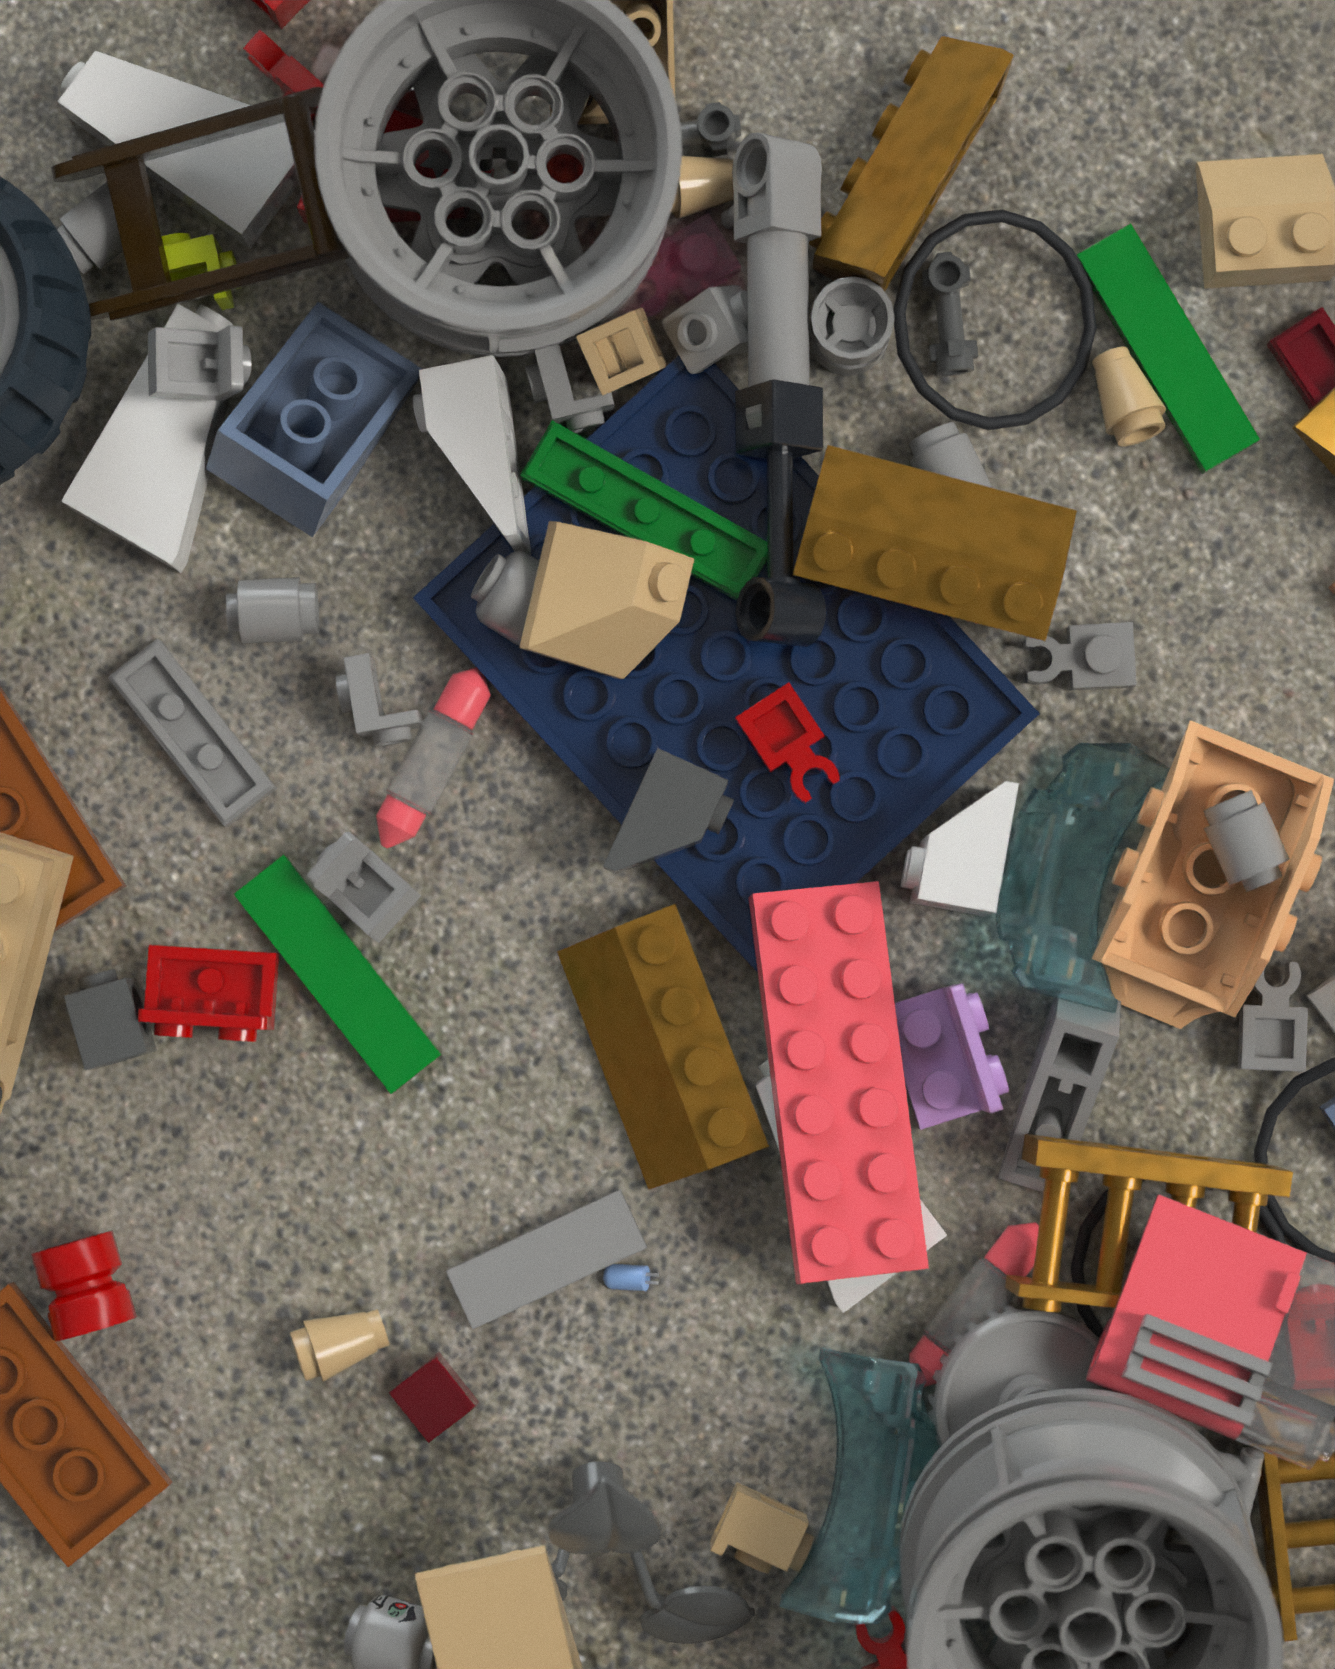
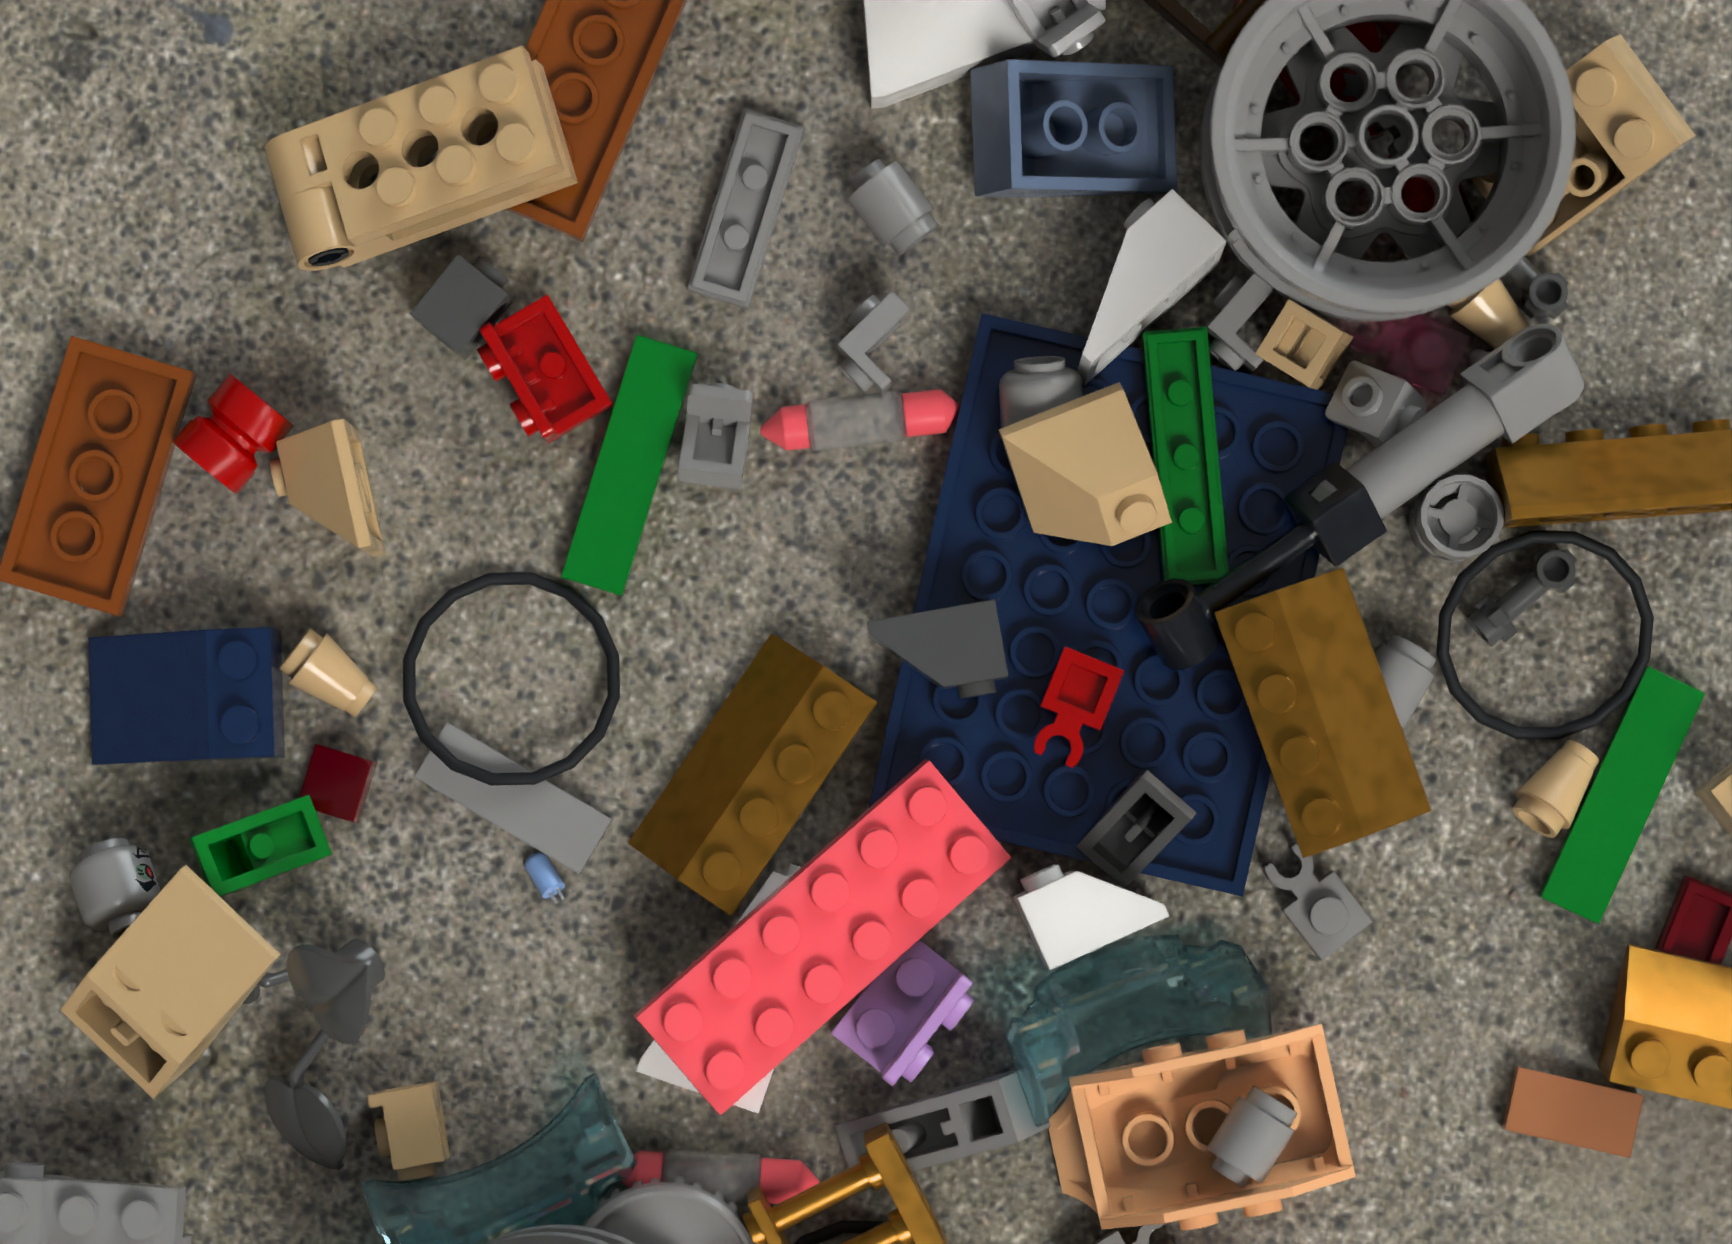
camera: 45 degrees right, 0 degrees up
(179, 1232) = (330, 482): none -> tan slope
(275, 1473) = (186, 696): none -> dark blue slope
(443, 1498) = (260, 846): none -> green slope
(530, 1248) = (548, 771): none -> black piece
(925, 761) = (1135, 828): none -> dark grey slope

